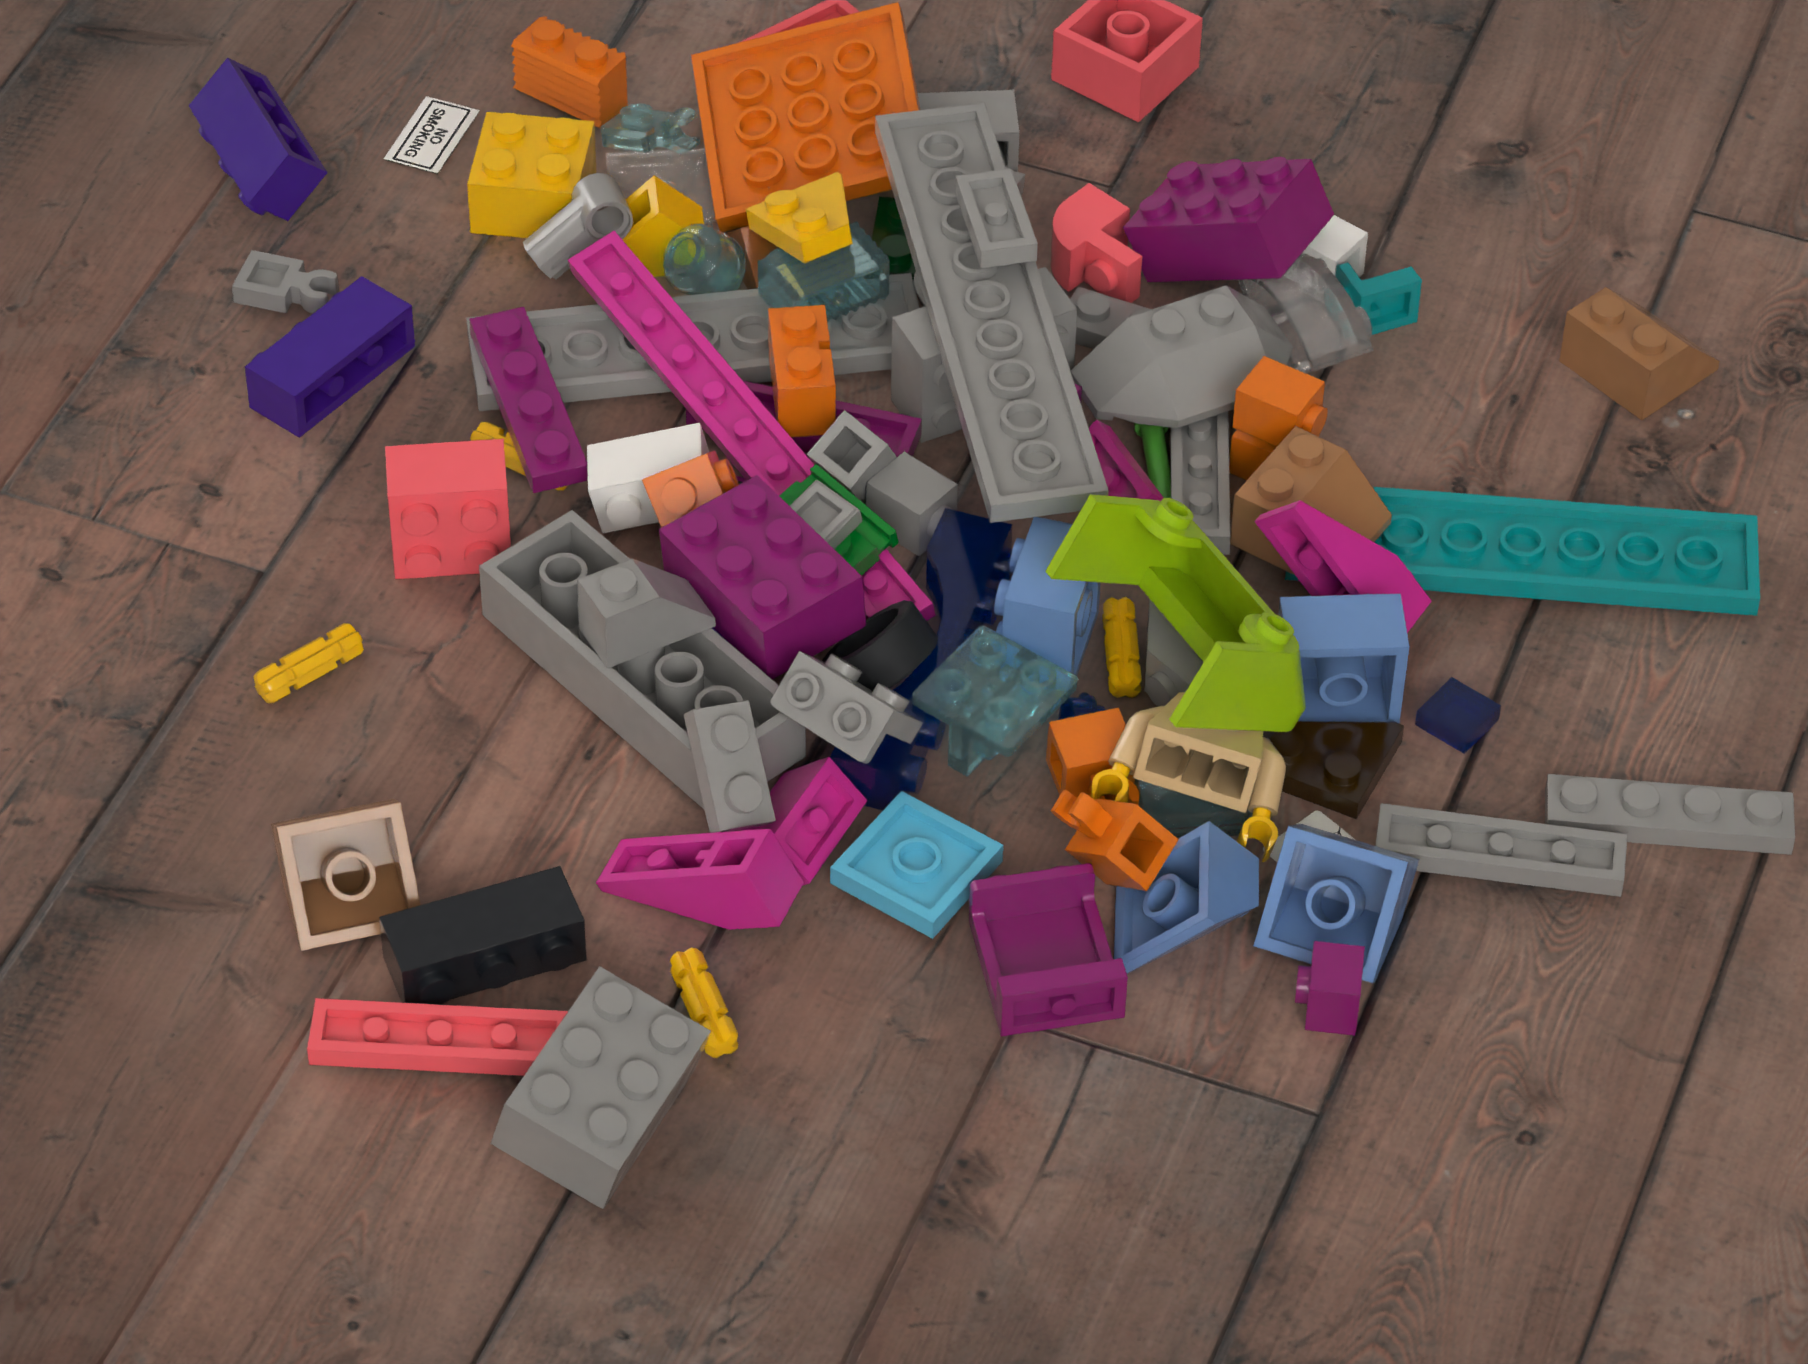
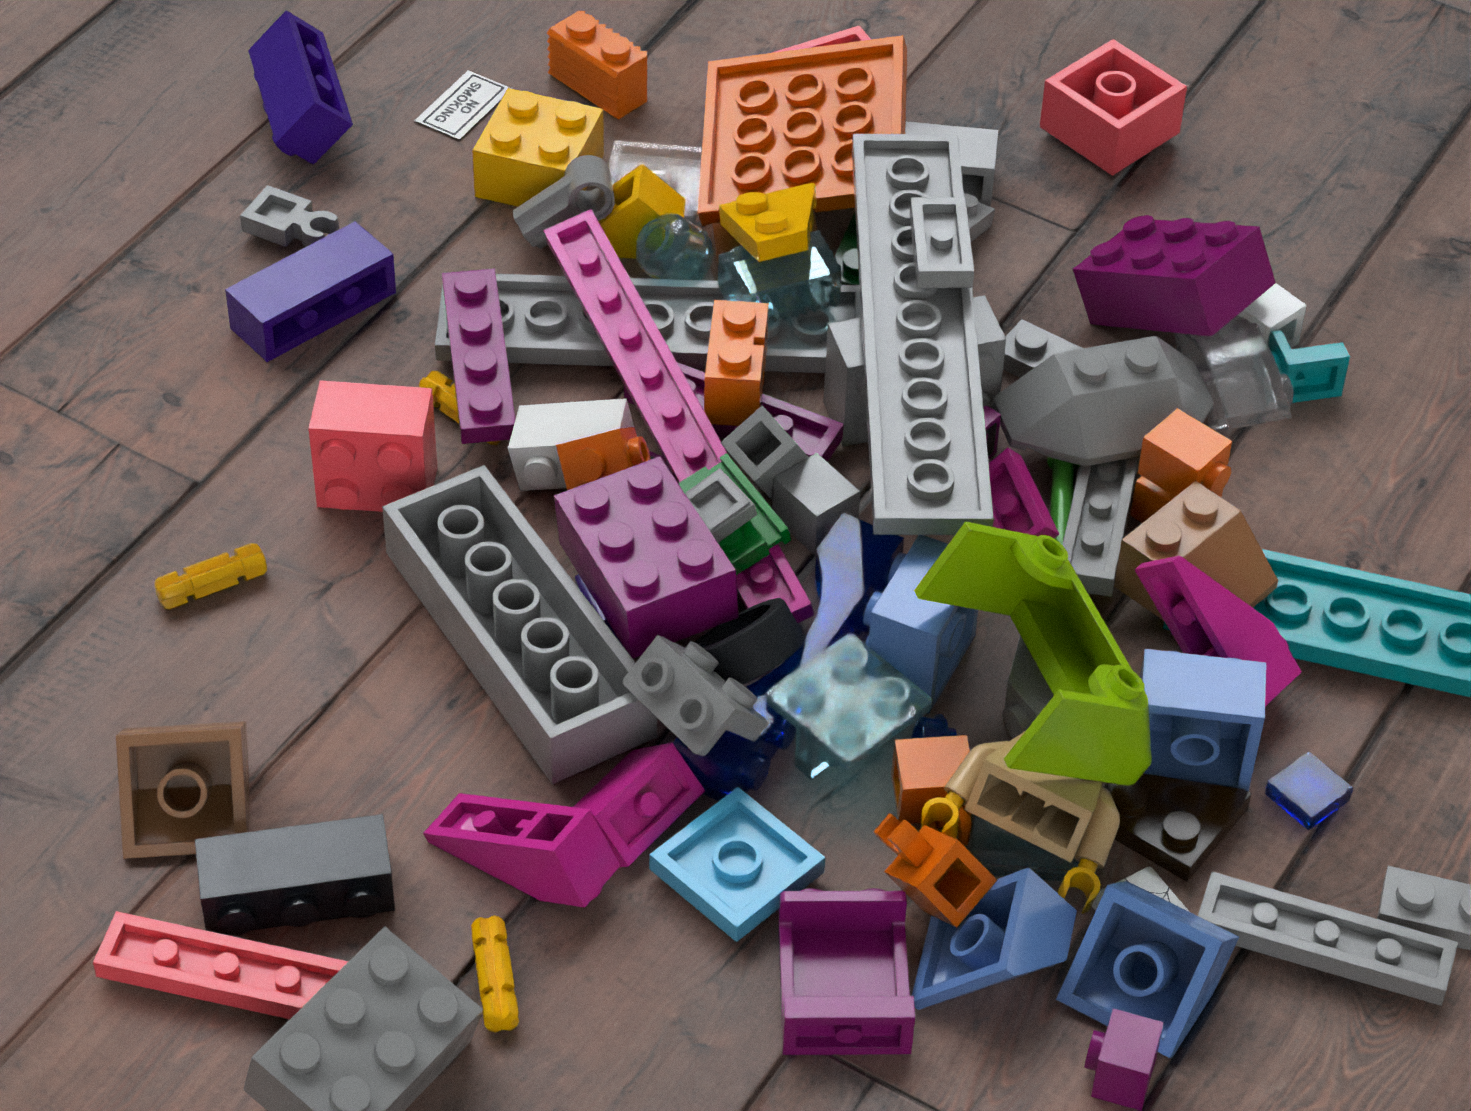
camera: 10 degrees right, 0 degrees up
(638, 610) = (517, 571): light grey slope -> none
(644, 129) = (653, 123): clear light blue plate -> none
(729, 767) = (567, 740): light grey plate -> none
(1093, 245) = (1043, 283): coral brick -> none
(1121, 647) = (988, 673): yellow axle -> none

